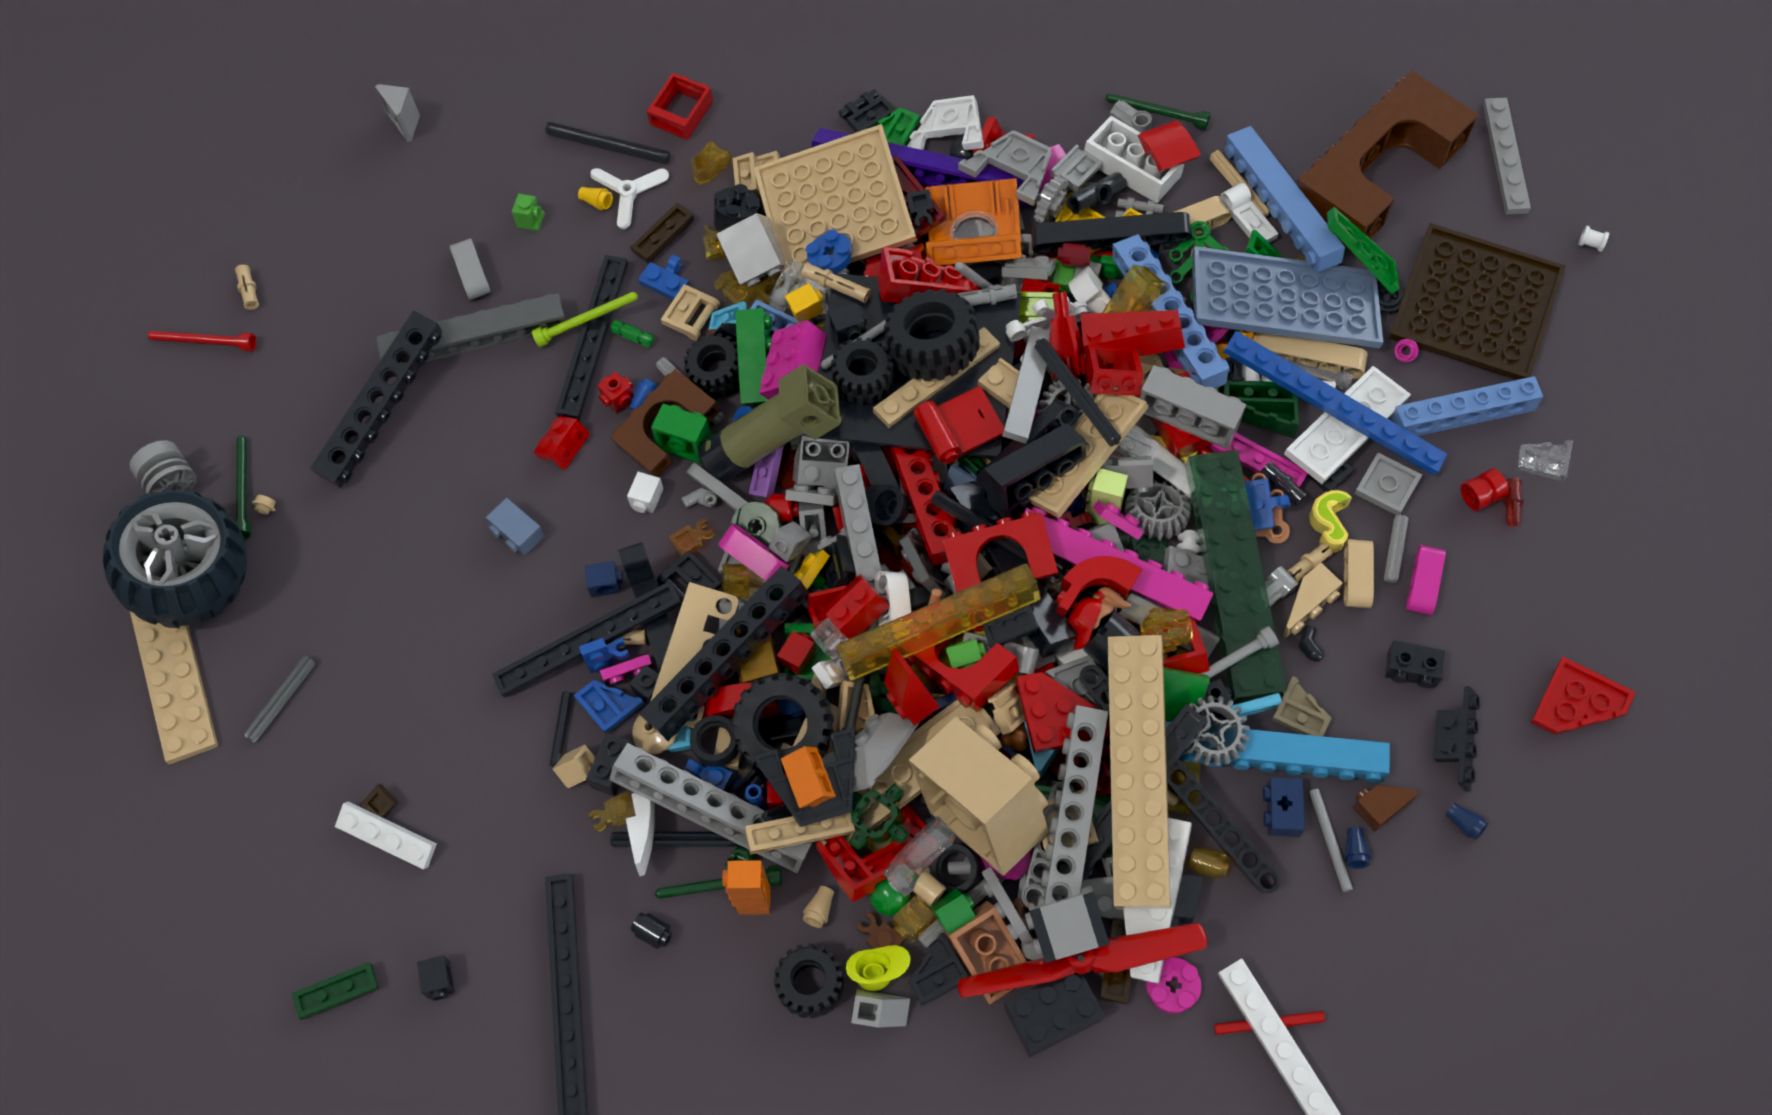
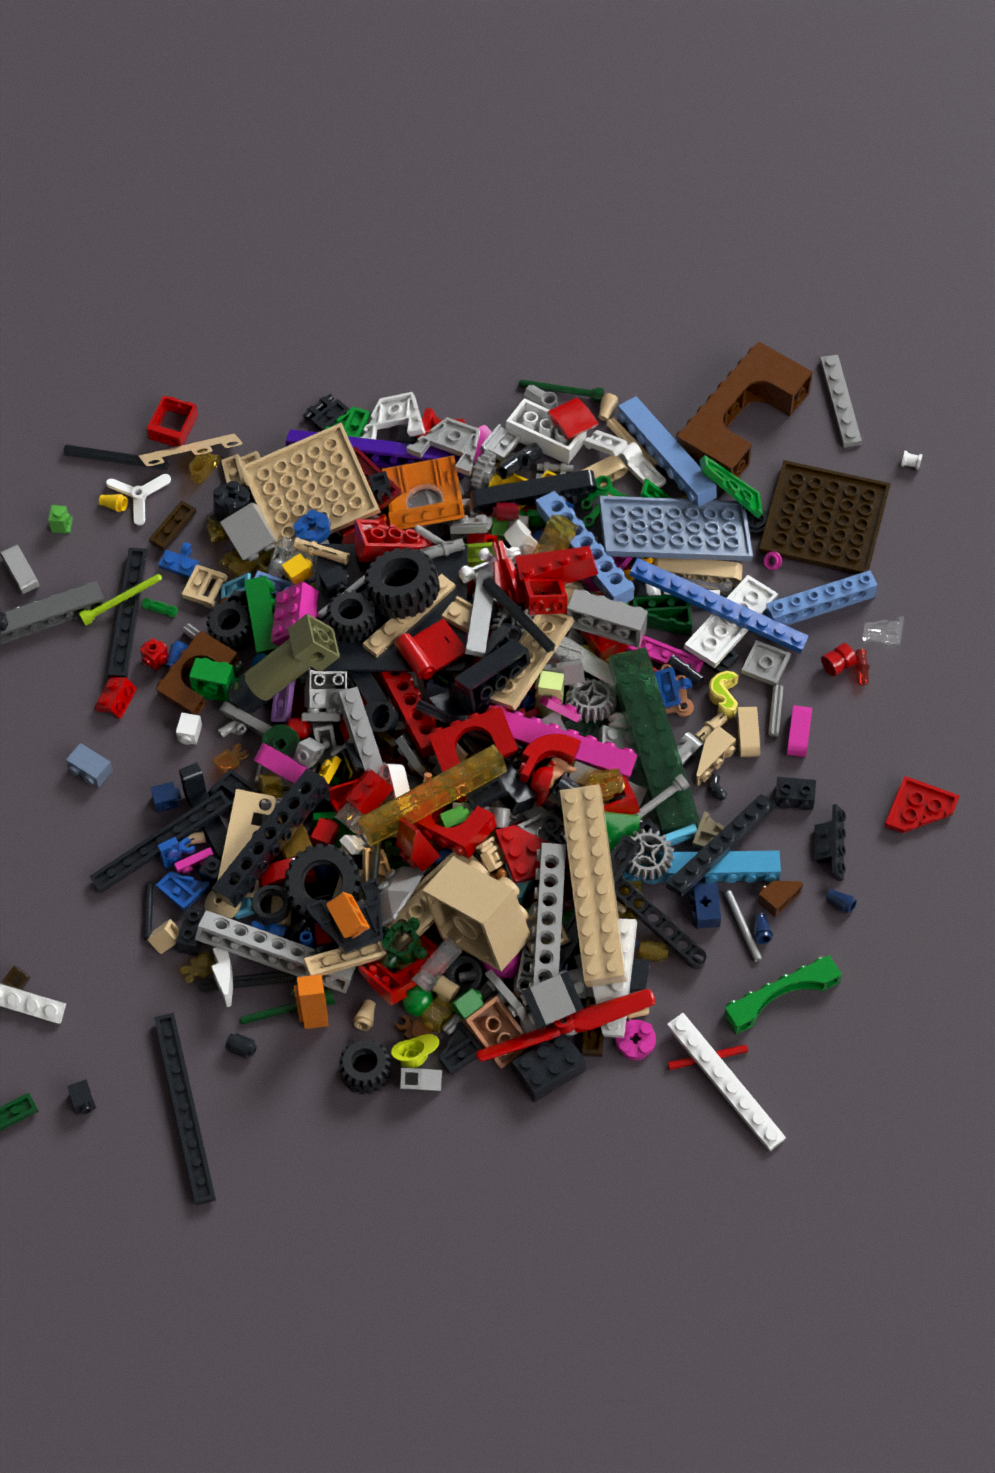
camera: 10 degrees left, 5 degrees down
(700, 139) = (194, 447): none -> tan piece
(1207, 181) = (605, 443): none -> white plate
(1214, 133) = (608, 405): none -> tan cone
(1311, 728) = (720, 845): none -> black plate
(1429, 926) = (816, 976): none -> green arch

